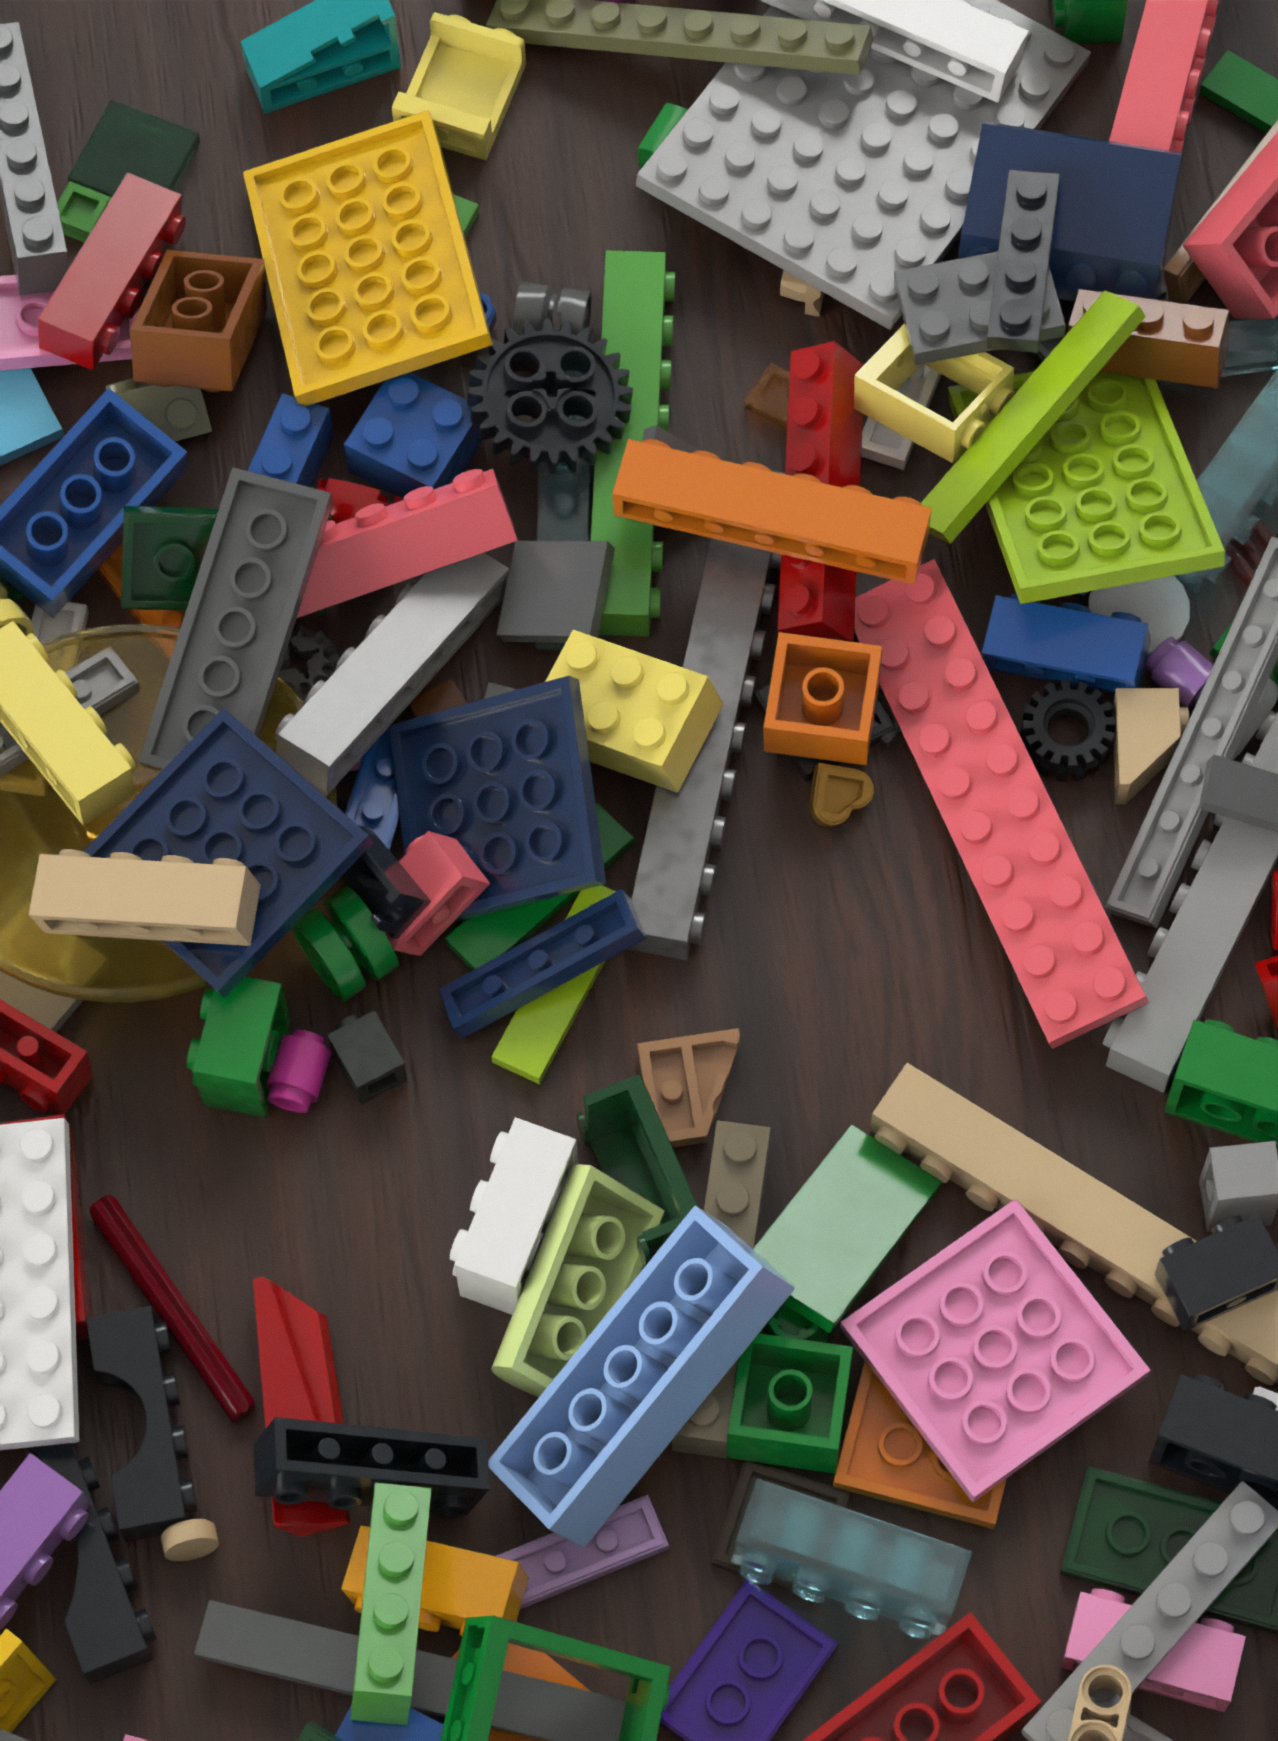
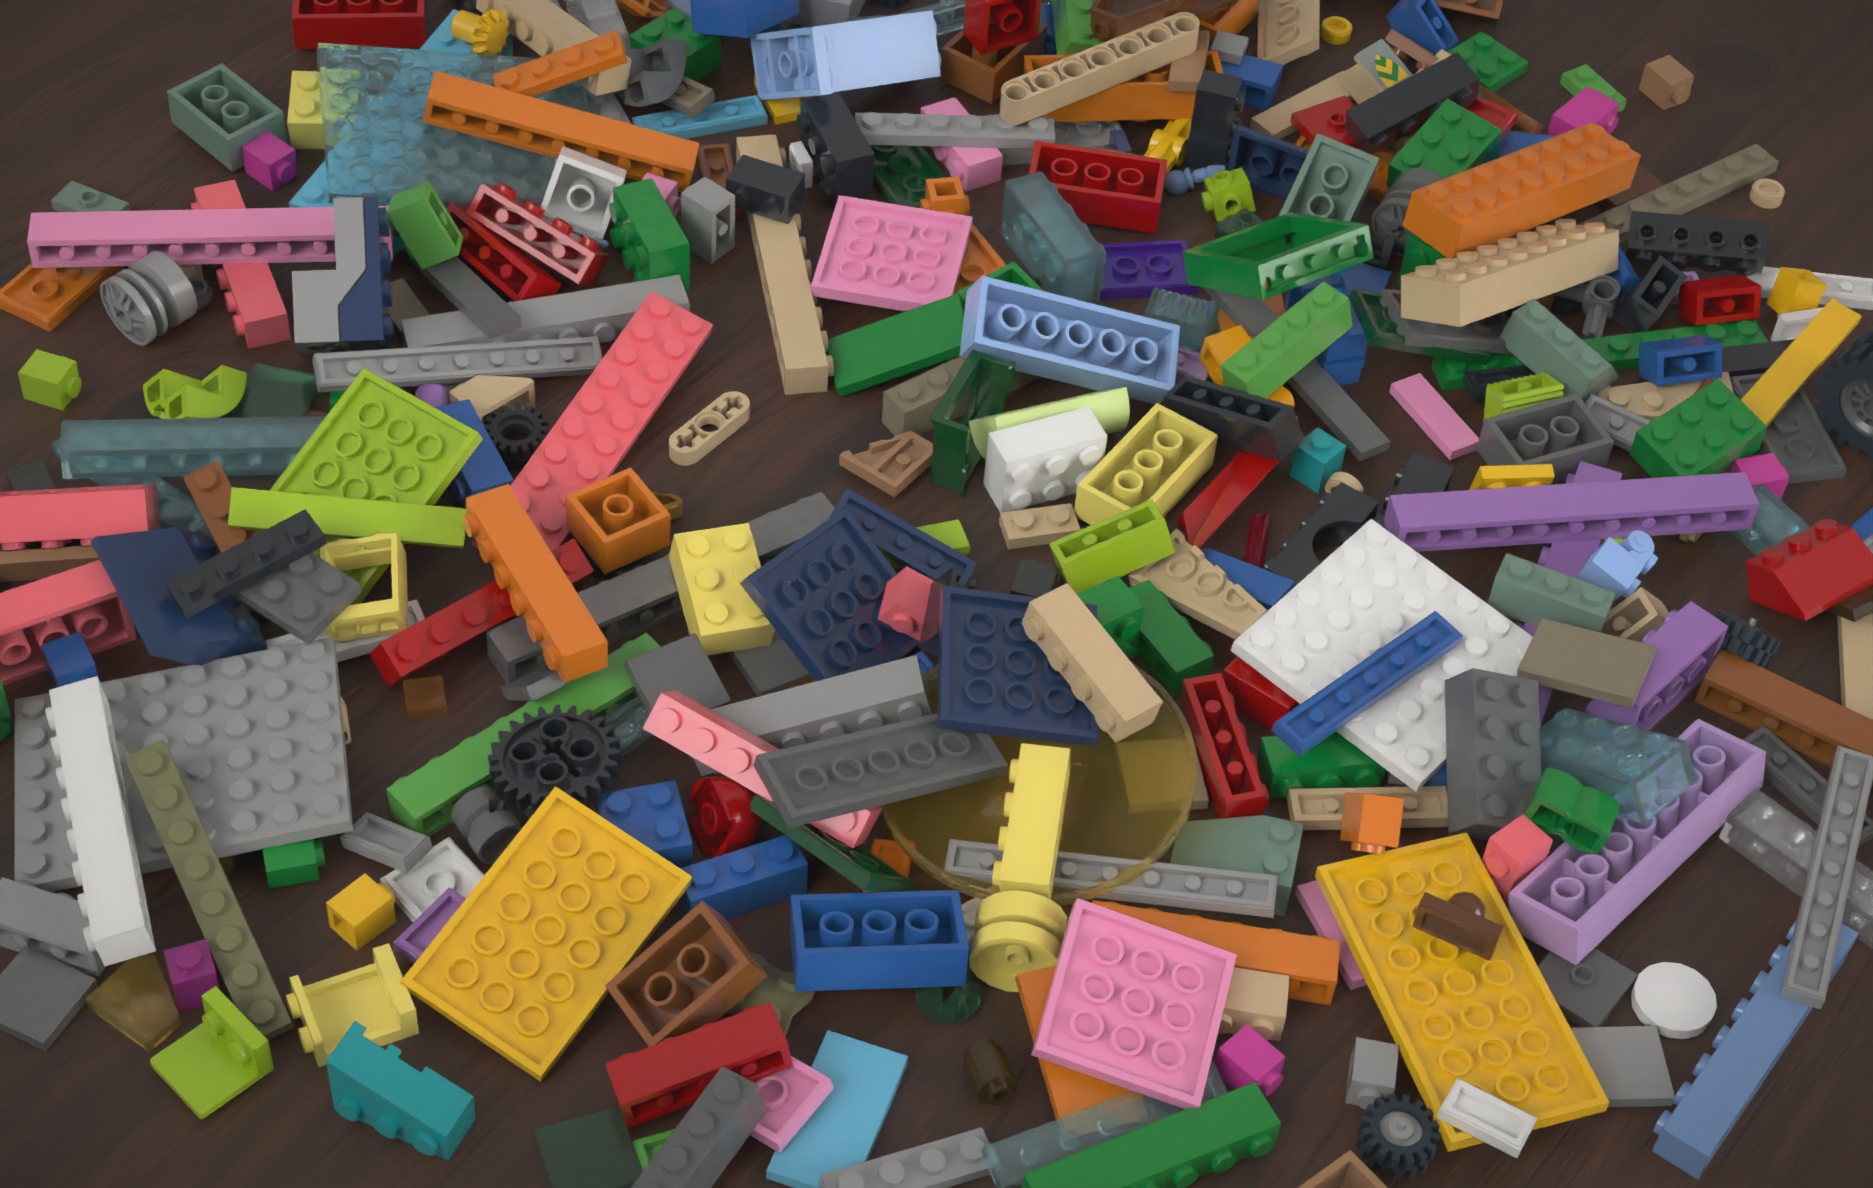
camera: 140 degrees left, 20 degrees down
(170, 1275) = (1261, 584): none -> blue tile
(186, 1129) = (1168, 642): none -> green brick
(208, 1217) = (1201, 589): none -> tan wing
(253, 1547) = (1317, 459): none -> teal brick
(326, 1163) = (1113, 547): none -> lime brick
(402, 1317) = (1153, 461): none -> light yellow brick
(456, 1166) = (1038, 525): none -> tan plate
(477, 198) = (427, 926): none -> medium lavender tile
(531, 245) = (436, 872): none -> white tile
(556, 158) = (361, 911): none -> yellow brick
(611, 1613) = (1194, 316): none -> clear light blue brick
(619, 229) = (386, 842): none -> light grey tile
(905, 981) = (704, 441): none -> tan beam
(1046, 1490) = (954, 198): none -> orange brick
(1085, 109) = (68, 660): none -> blue brick

